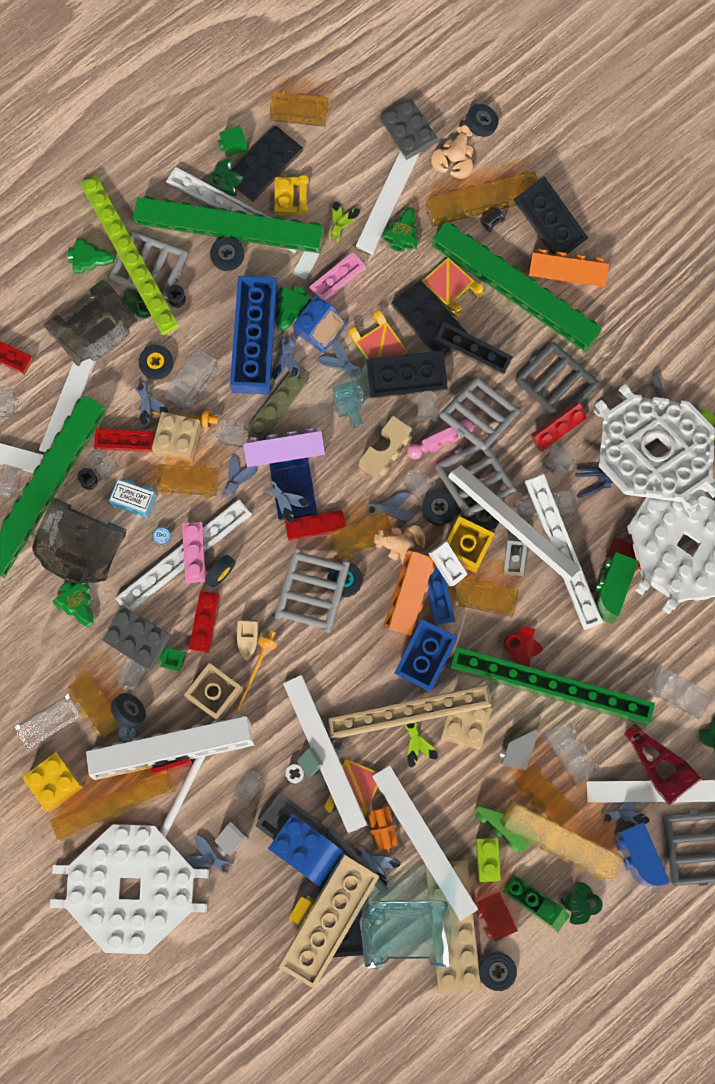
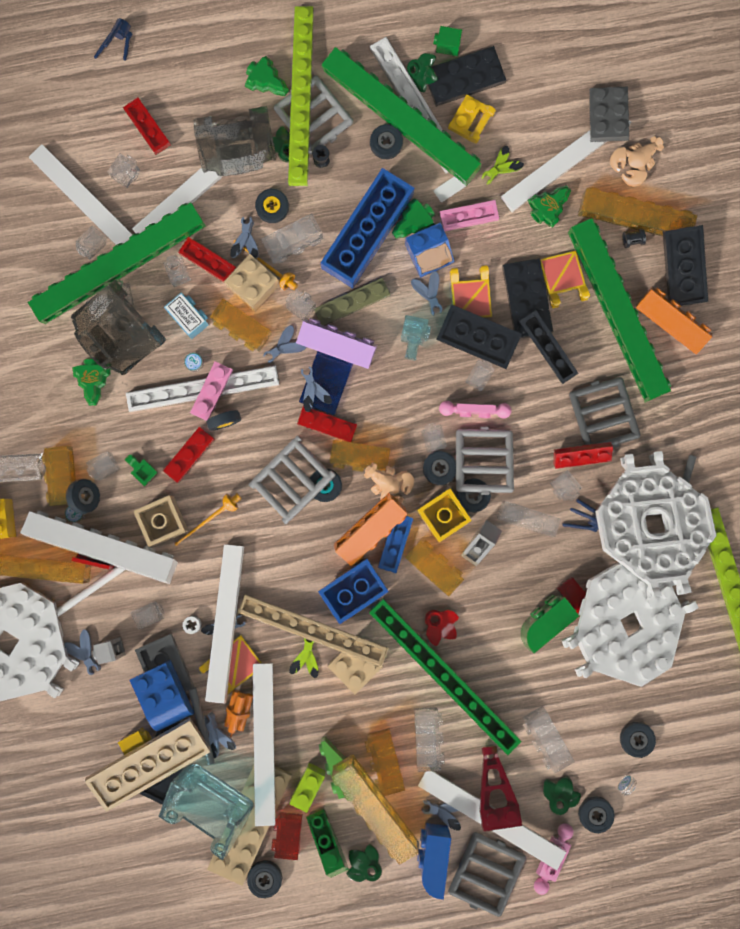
camera: 25 degrees right, 10 degrees up
(84, 474) = (153, 272): black bush -> none
(136, 637) = (123, 438): dark grey plate -> none
(247, 637) = (216, 488): tan plate -> none
(286, 359) = (383, 266): sand blue piece -> none
(299, 108) = (523, 42): clear yellow brick -> none
(310, 762) = (208, 624): sand green tile -> none
(377, 462) = (409, 400): tan arch -> none
(391, 509) = (398, 446): sand blue piece -> none
(448, 563) = (416, 524): white plate -> none
(489, 118) = (685, 137): black bush -> none
(492, 433) = (505, 388): light grey bar -> none
(514, 523) = (493, 522): white tile -> none
(519, 752) = (386, 712): light grey slope -> none
(558, 537) = (521, 567): white tile -> none

